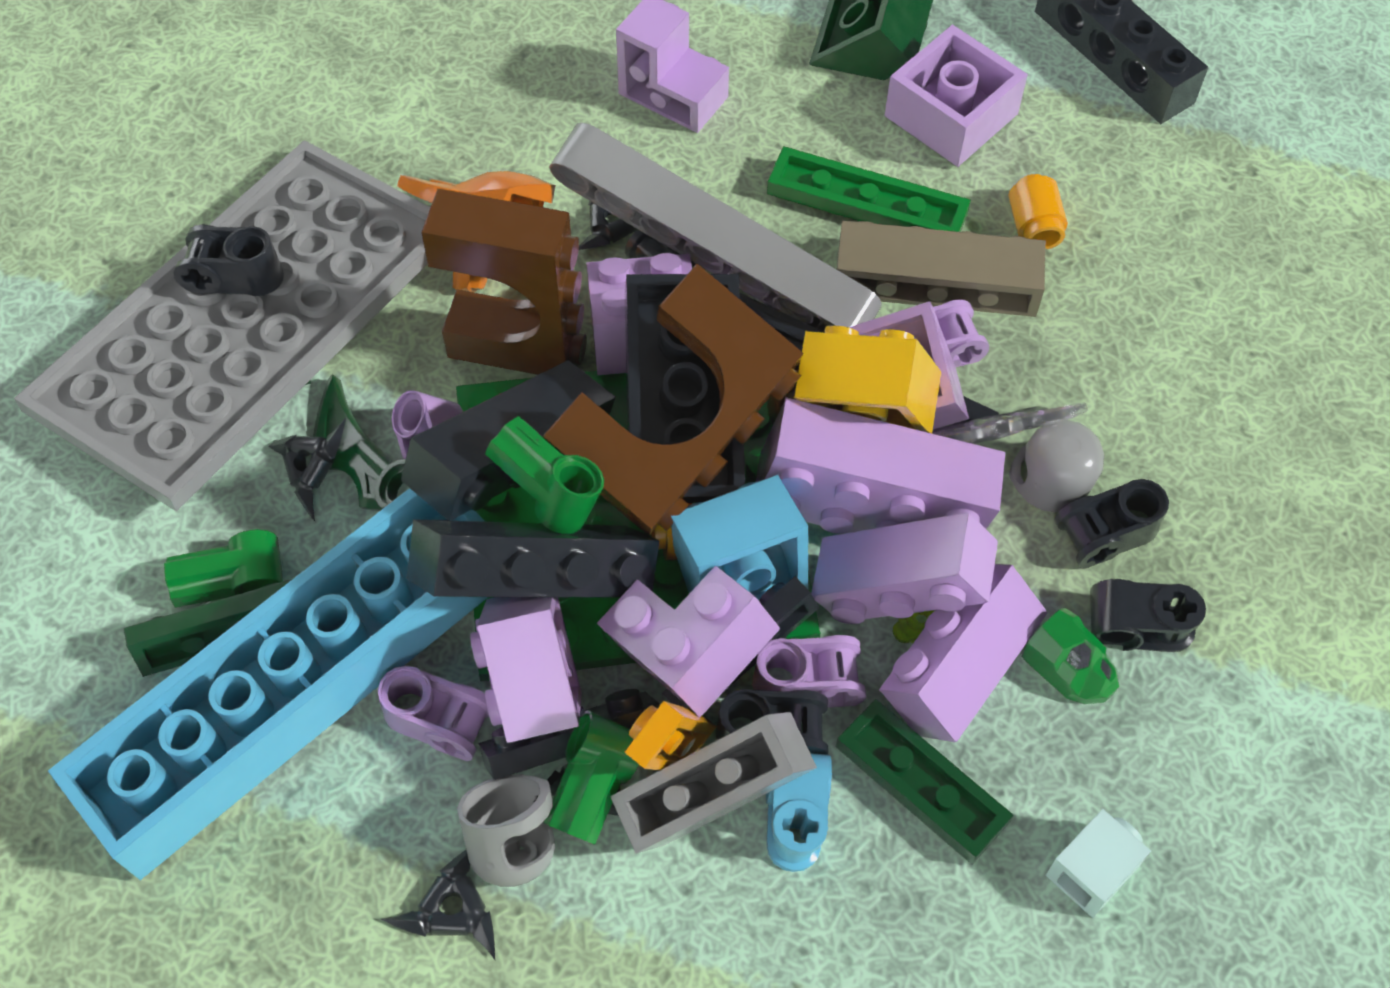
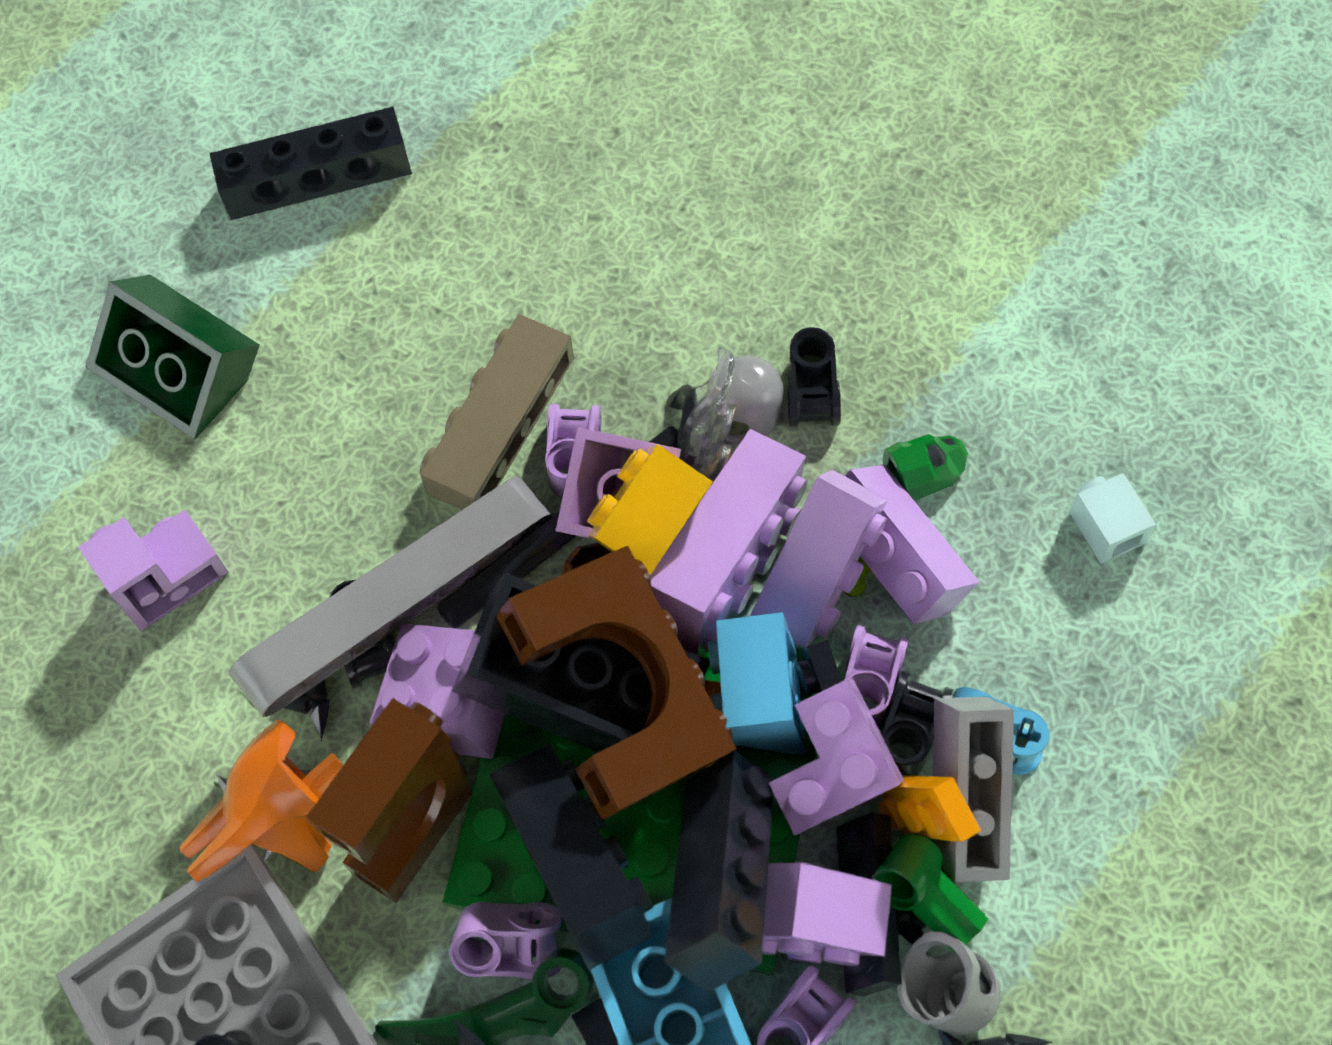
camera: 65 degrees left, 5 degrees up
(561, 484) = (674, 815): green piece -> none
(863, 193) = (384, 446): green plate -> none
(924, 781) = (997, 623): dark green plate -> none
(955, 95) = (314, 323): lavender brick -> none
(1038, 209) = (470, 309): light orange brick -> none
(1141, 615) = (907, 397): black piece -> none

